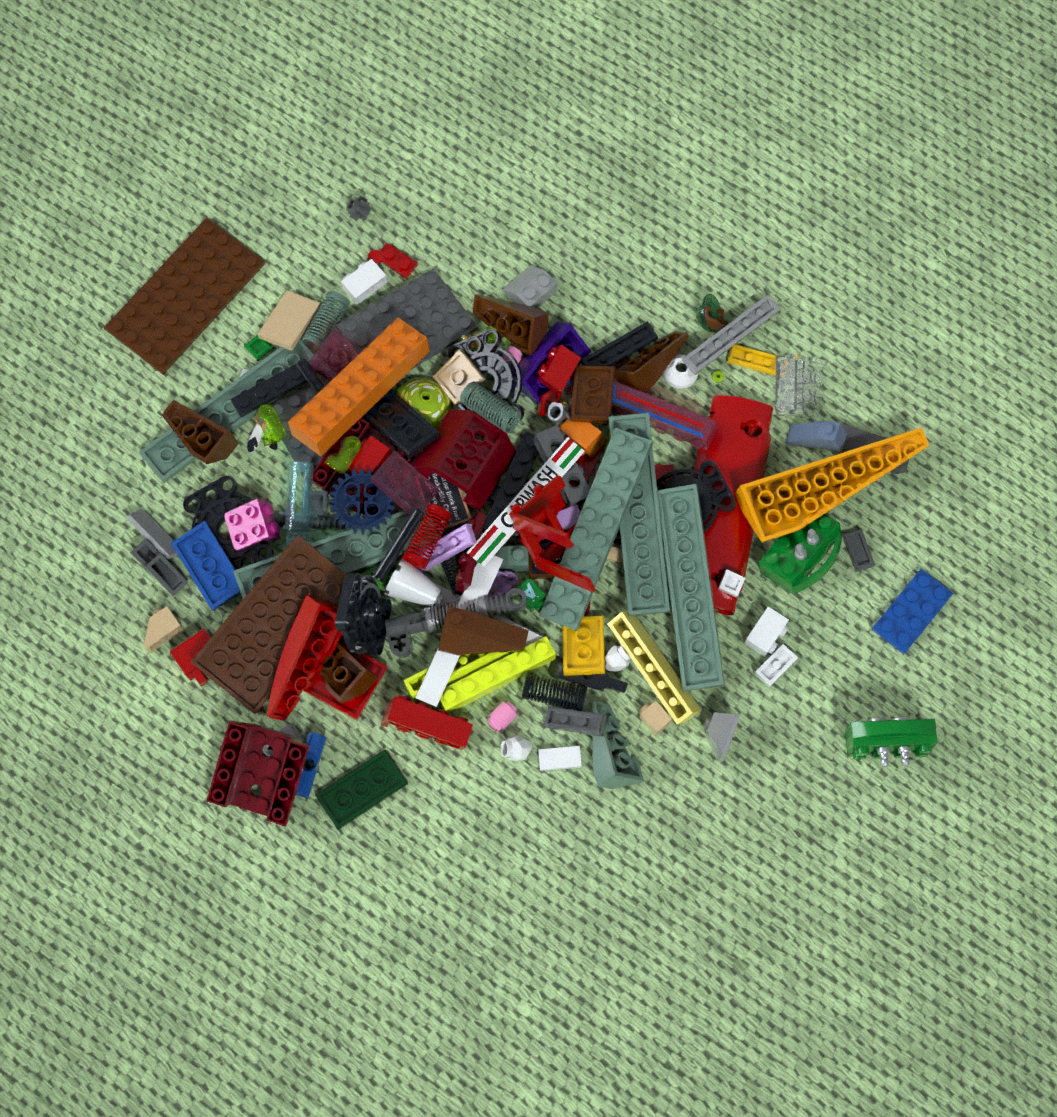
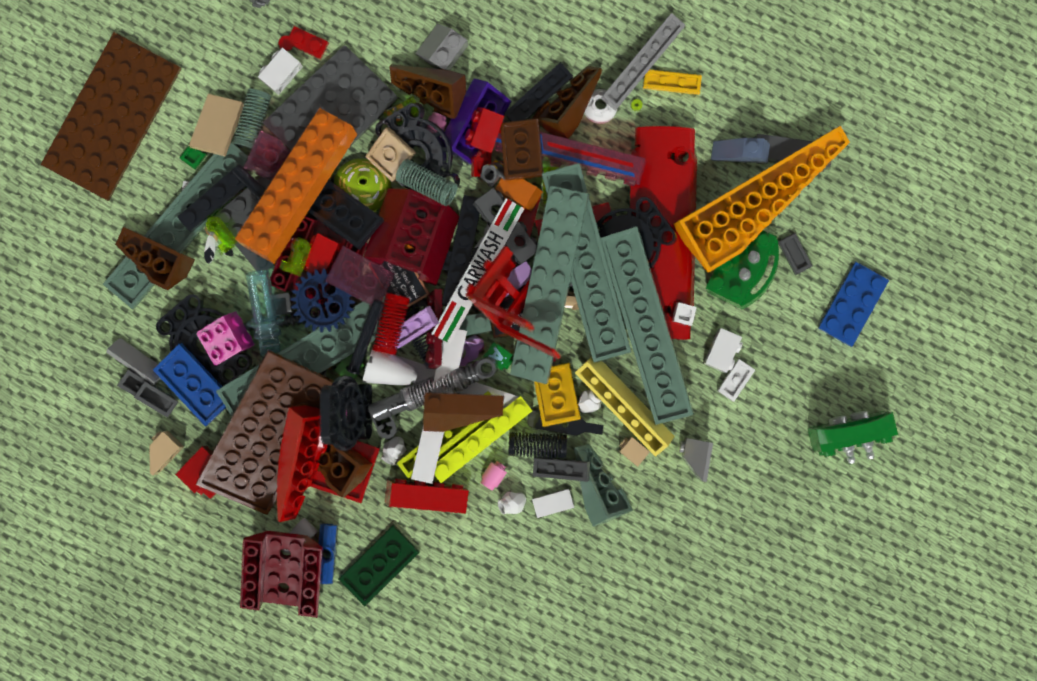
camera: 10 degrees left, 15 degrees up
(400, 671) = (394, 450): none -> white rock
(710, 315) = (620, 44): clear green piece -> none
(798, 385) = (715, 102): clear wedge -> none

